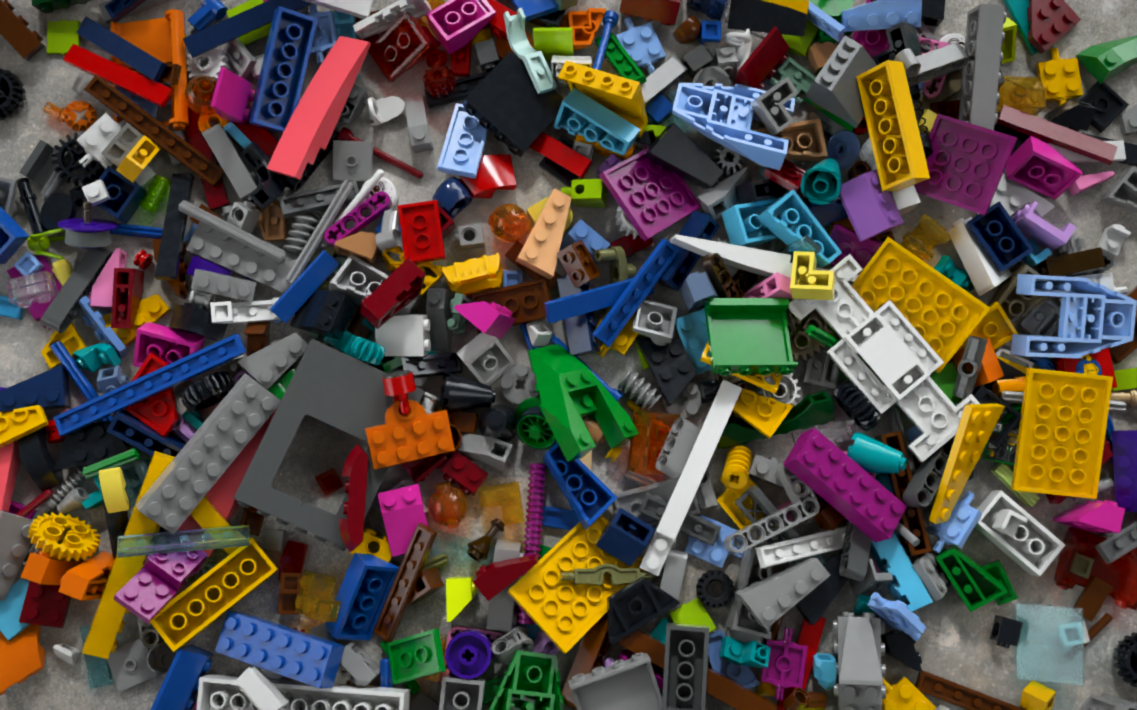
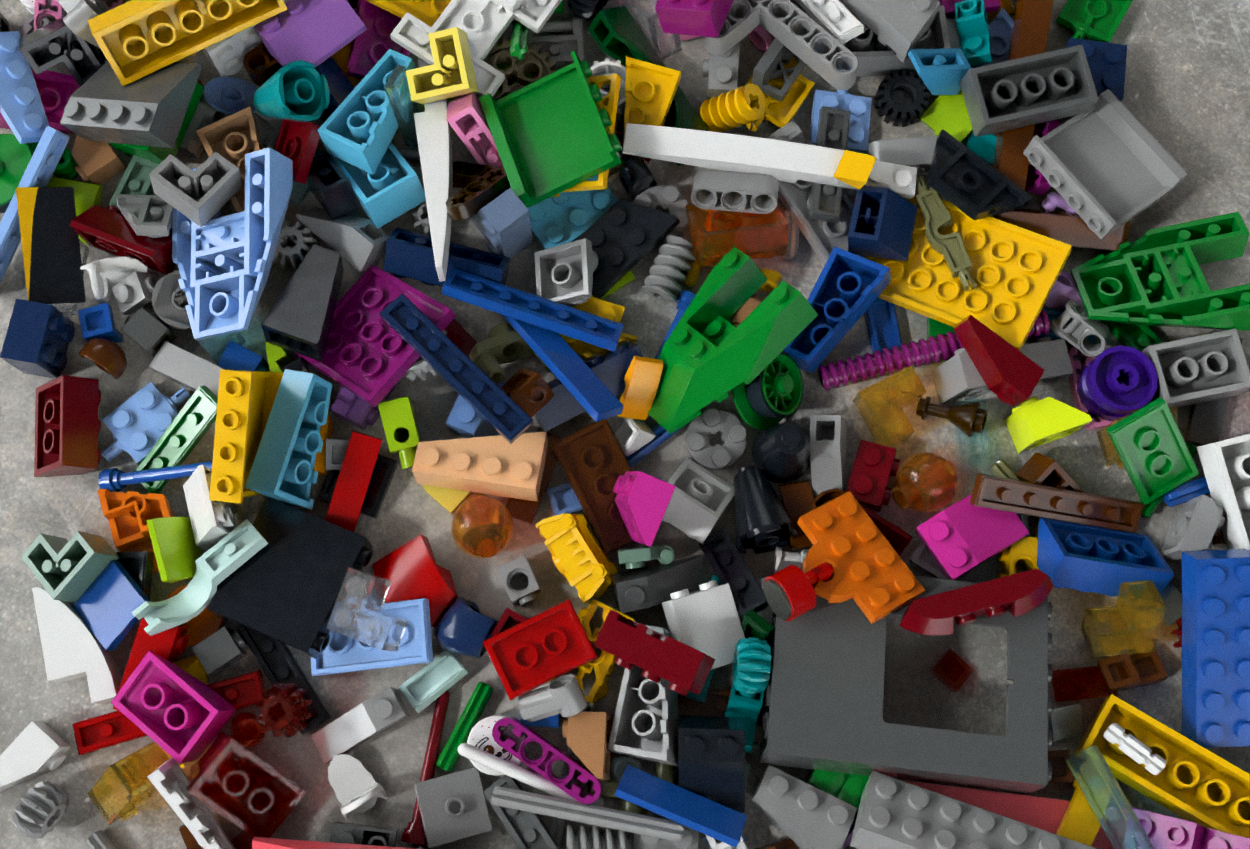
camera: 110 degrees left, 5 degrees down
(238, 567) = (1135, 749): none -> white axle
(398, 182) = (464, 725): none -> green axle
(427, 167) = (433, 680): none -> light aqua tile
(477, 135) = (360, 614): none -> clear brick
(564, 344) = (641, 387): none -> light orange slope
(607, 229) = (456, 368): none -> dark blue tile
(664, 527) = (854, 168): none -> yellow slope
(722, 614) = (940, 69): none -> dark azure slope
(770, 74) = (146, 214): none -> light grey wing

